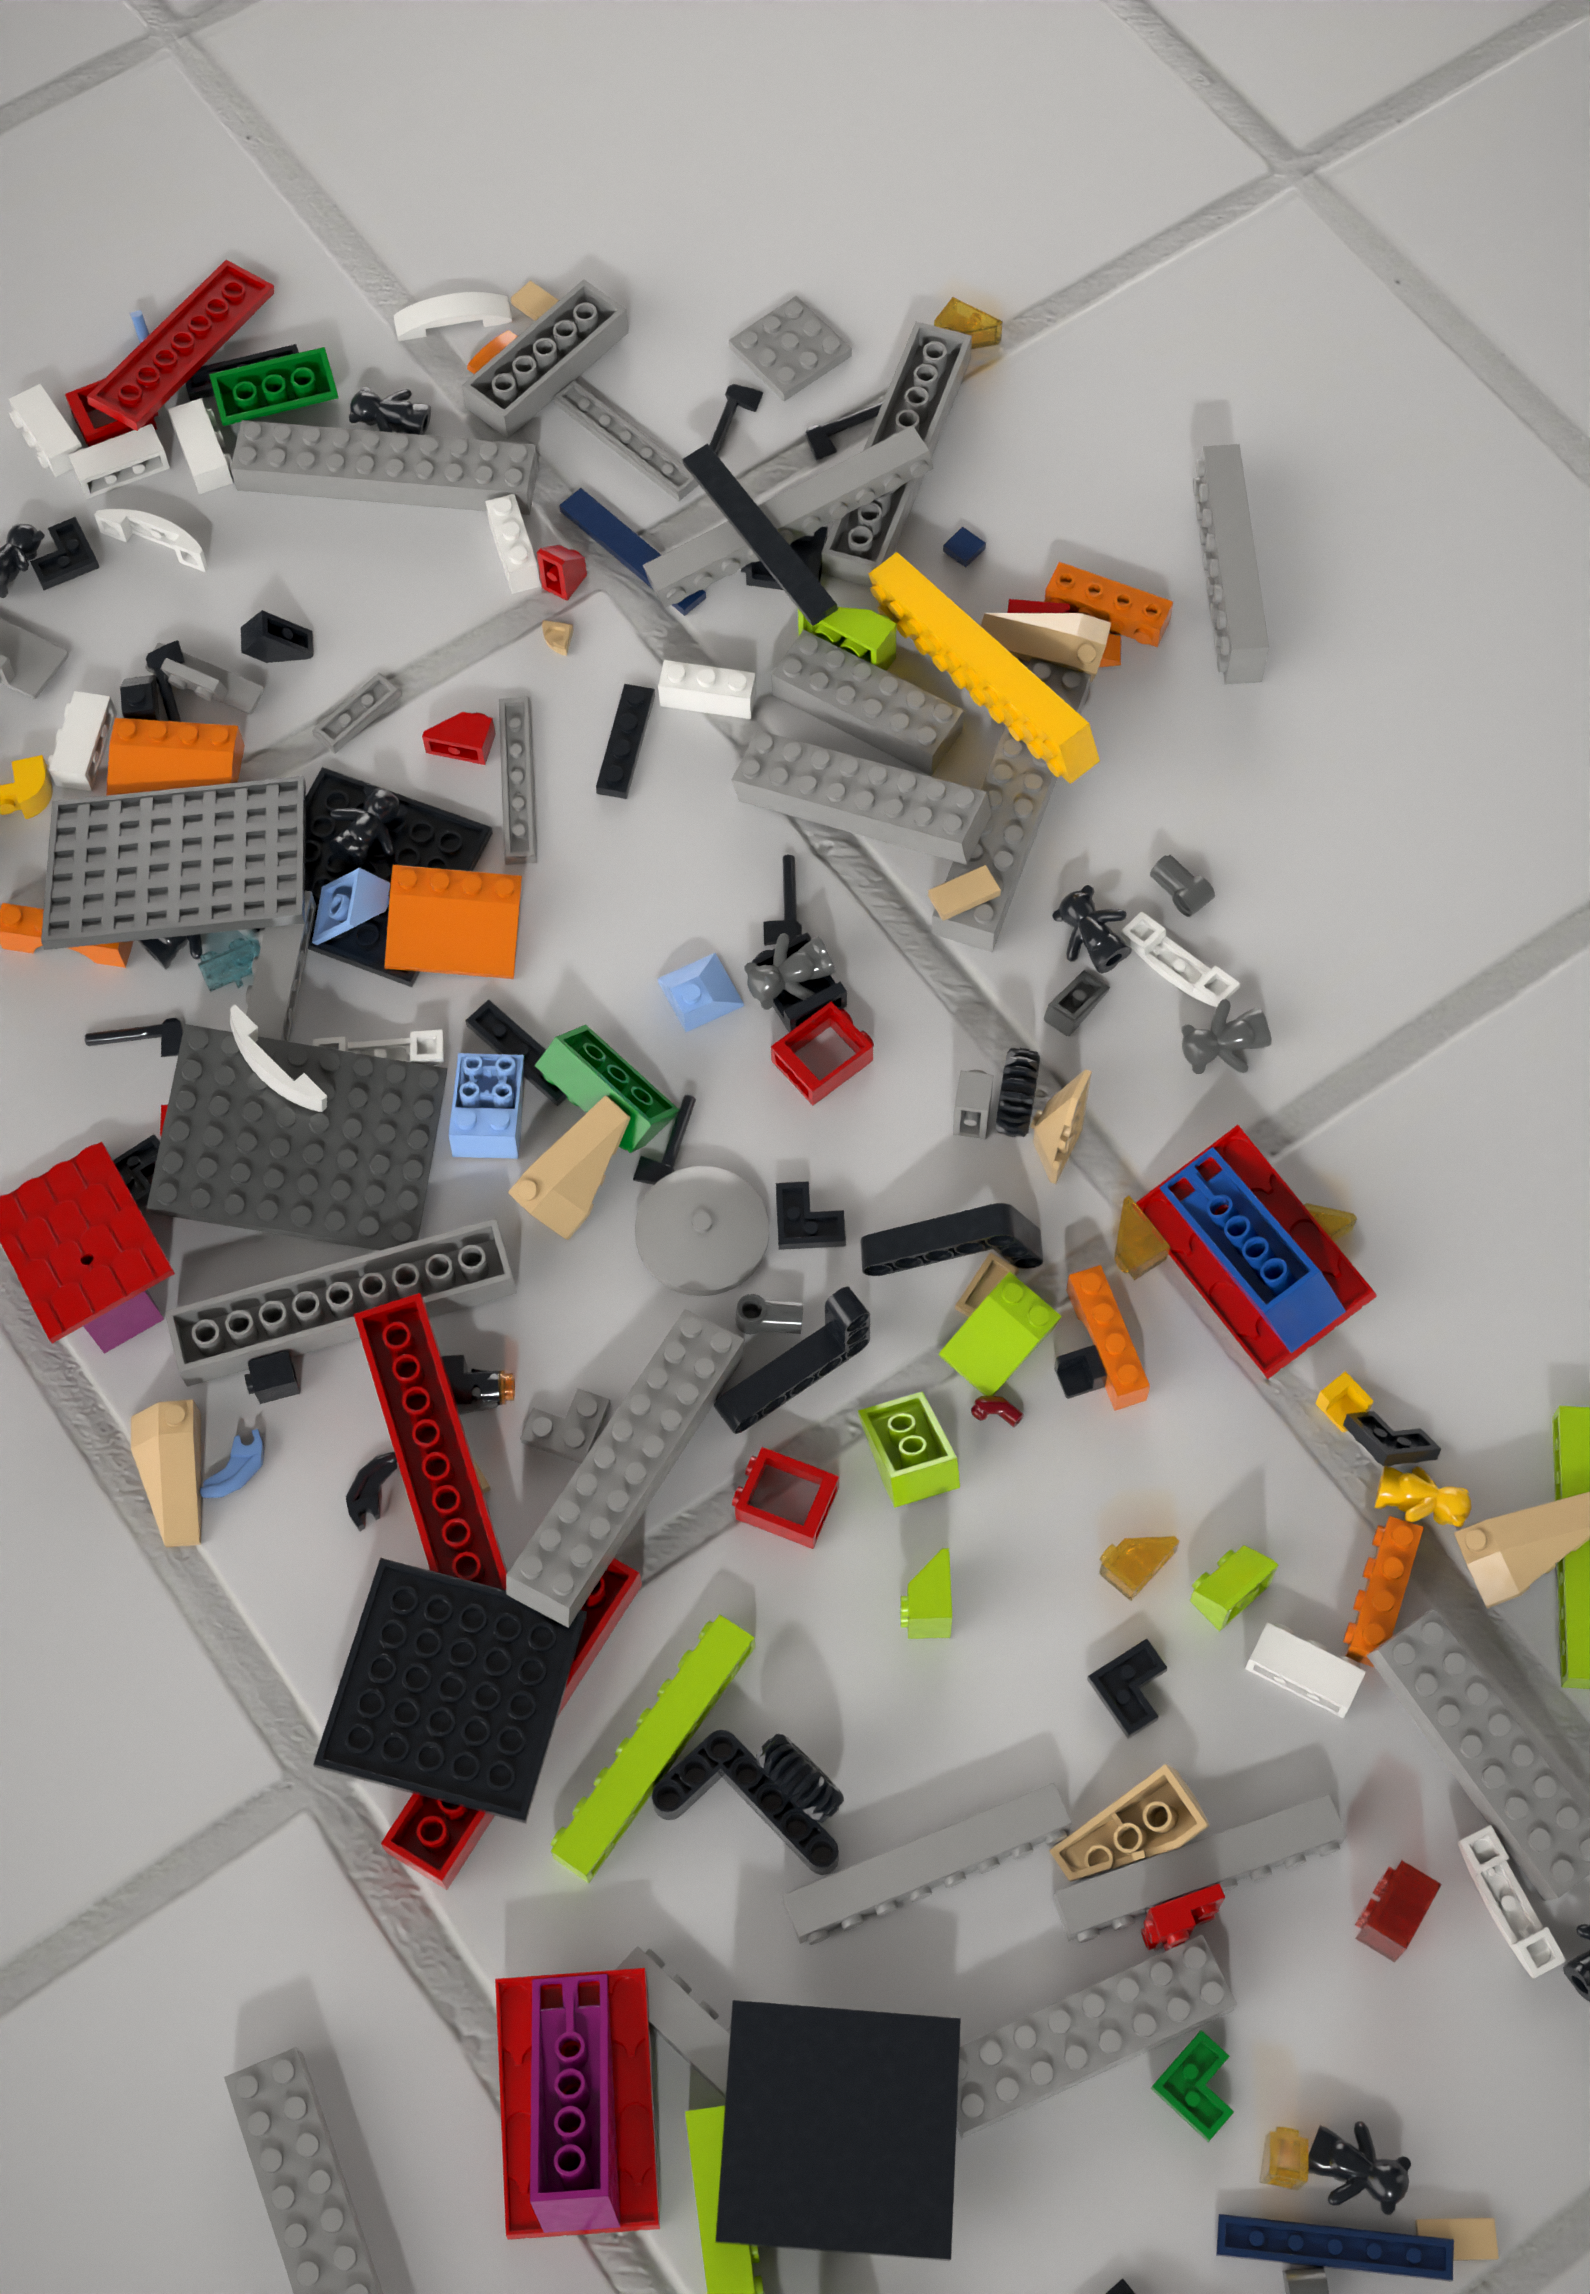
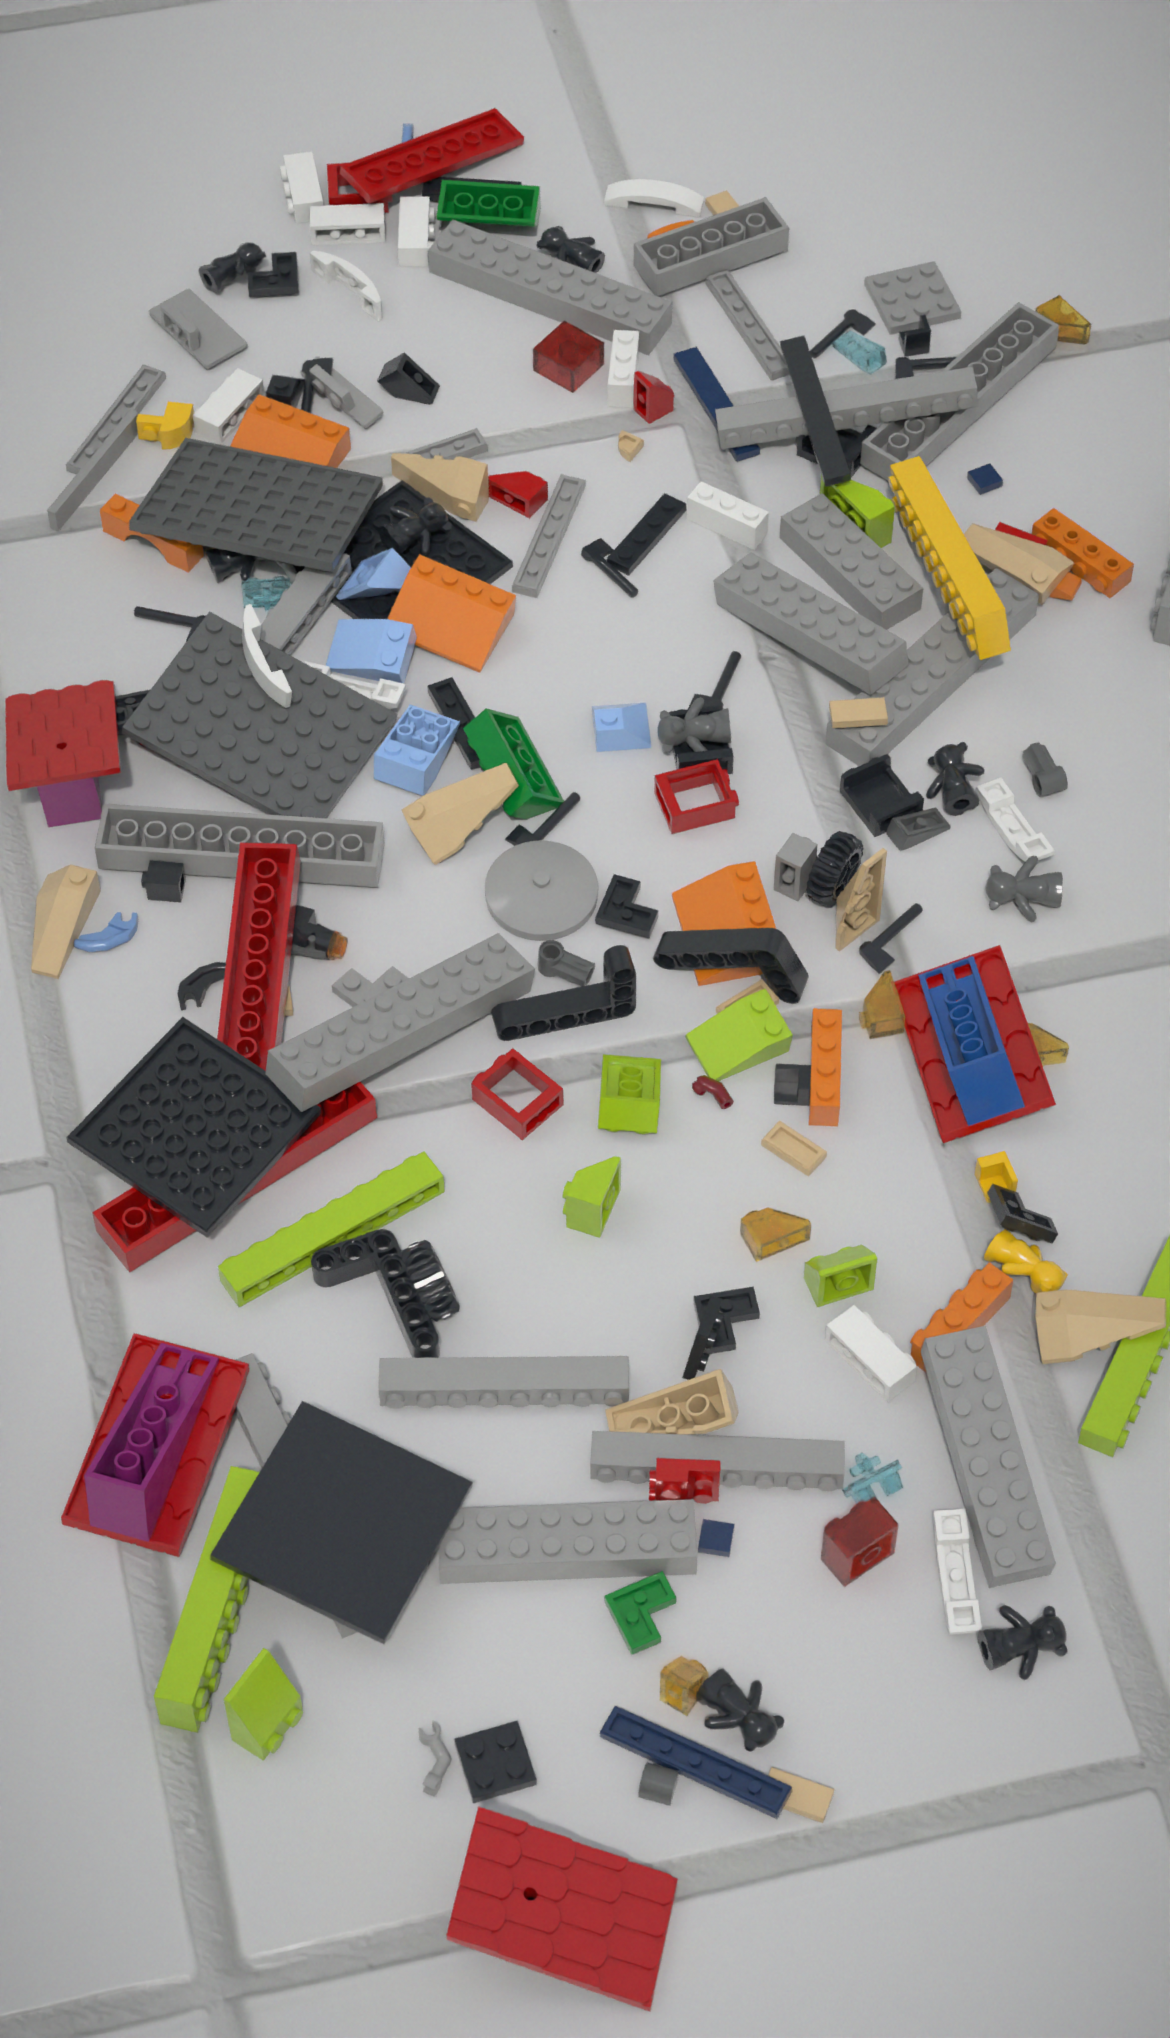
camera: 20 degrees right, 10 degrees down
(382, 997) = (372, 649): none -> light blue slope
(389, 757) = (454, 484): none -> tan wedge
(444, 548) = (568, 356): none -> clear red brick
(577, 784) = (595, 552): none -> black piece
(776, 444) = (863, 352): none -> clear light blue slope
(819, 399) = (916, 341): none -> black panel
(916, 1181) = (724, 901): none -> orange slope
(1019, 979) = (878, 794): none -> black panel
(1091, 1172) = (872, 951): none -> black piece
(1113, 1447) = (794, 1148): none -> tan tile
(1129, 1731) = (704, 1338): none -> black plate
(1237, 1960) = (716, 1538): none -> dark blue tile
(1369, 1820) = (886, 1476): none -> clear light blue hips

